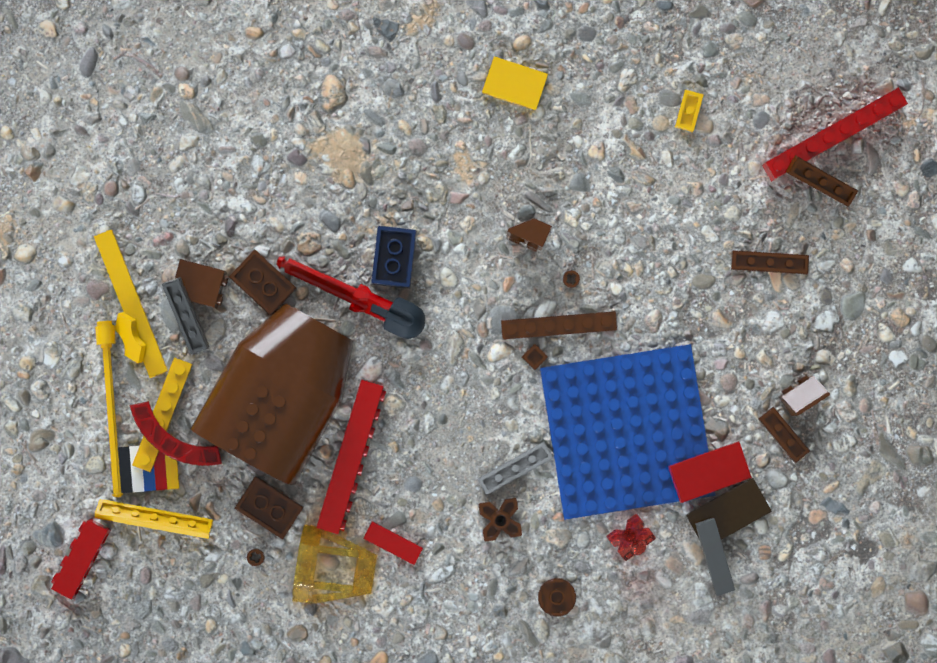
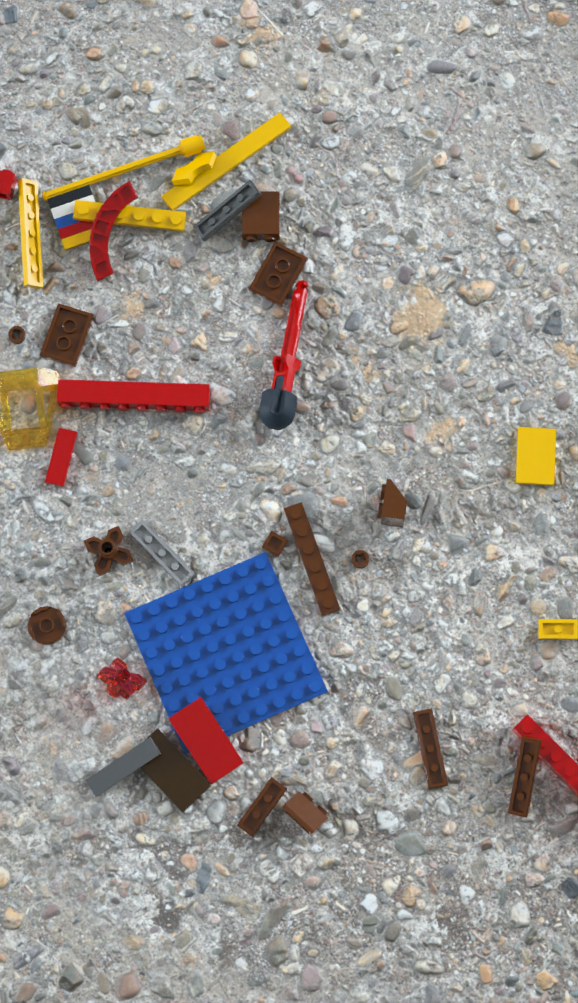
camera: 80 degrees right, 10 degrees down
(278, 394) = (174, 312): reddish brown windscreen -> none
(394, 257) = (334, 384): dark blue brick -> none

